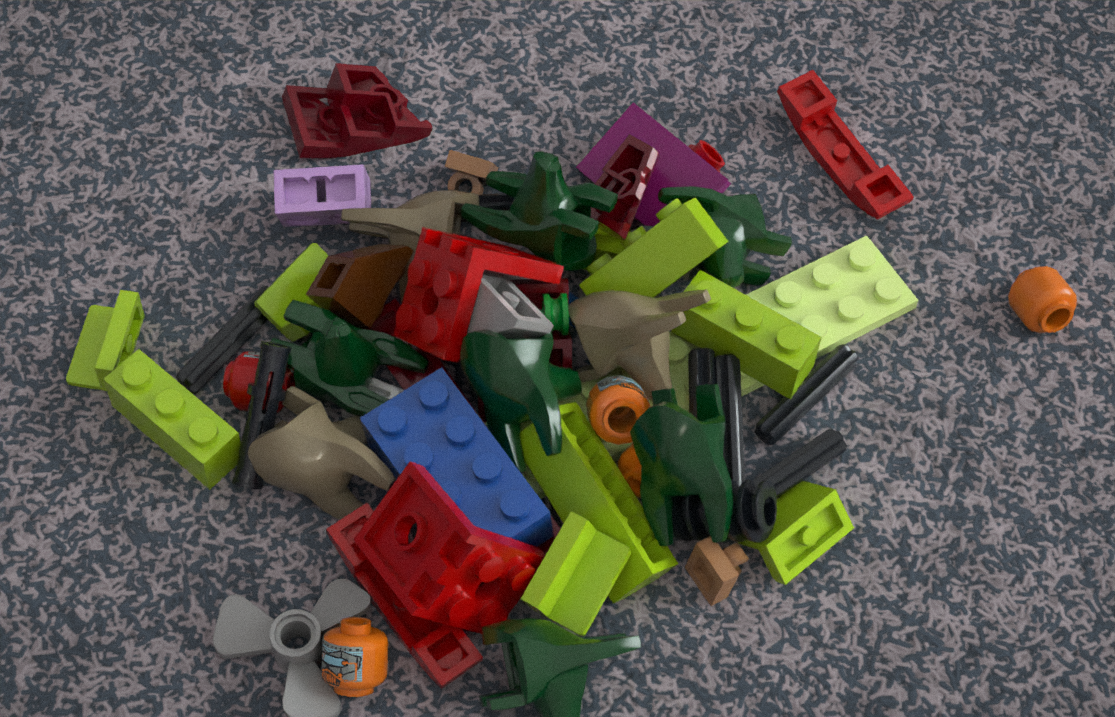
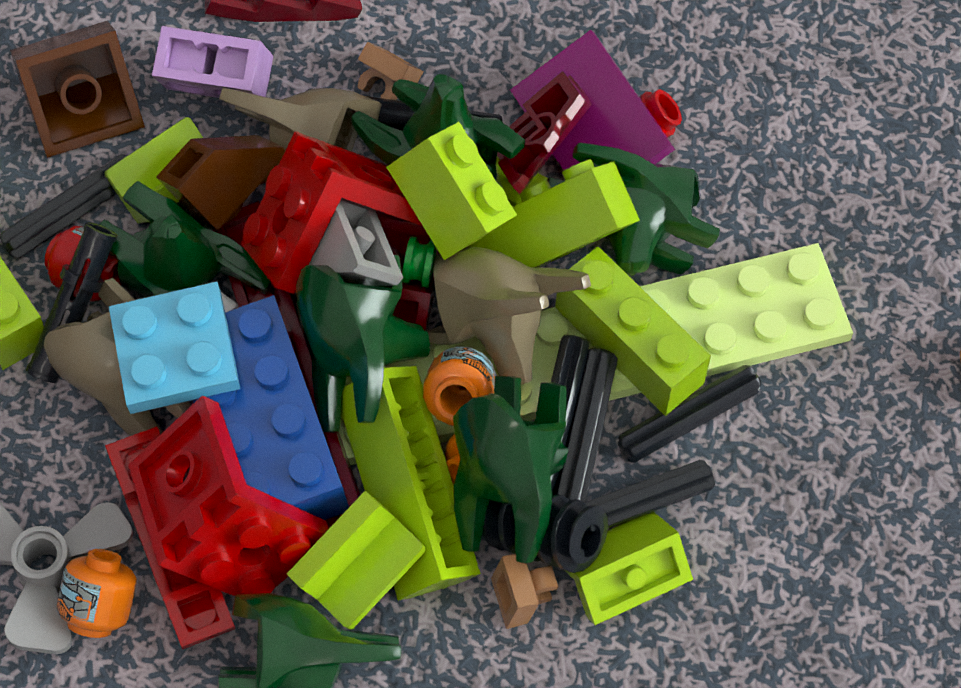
camera: 15 degrees right, 5 degrees up
(209, 239) = (77, 88): none -> reddish brown slope
(370, 428) = (174, 347): none -> medium azure plate
(573, 245) = (451, 190): none -> lime brick
(837, 150) = (819, 133): red slope -> none

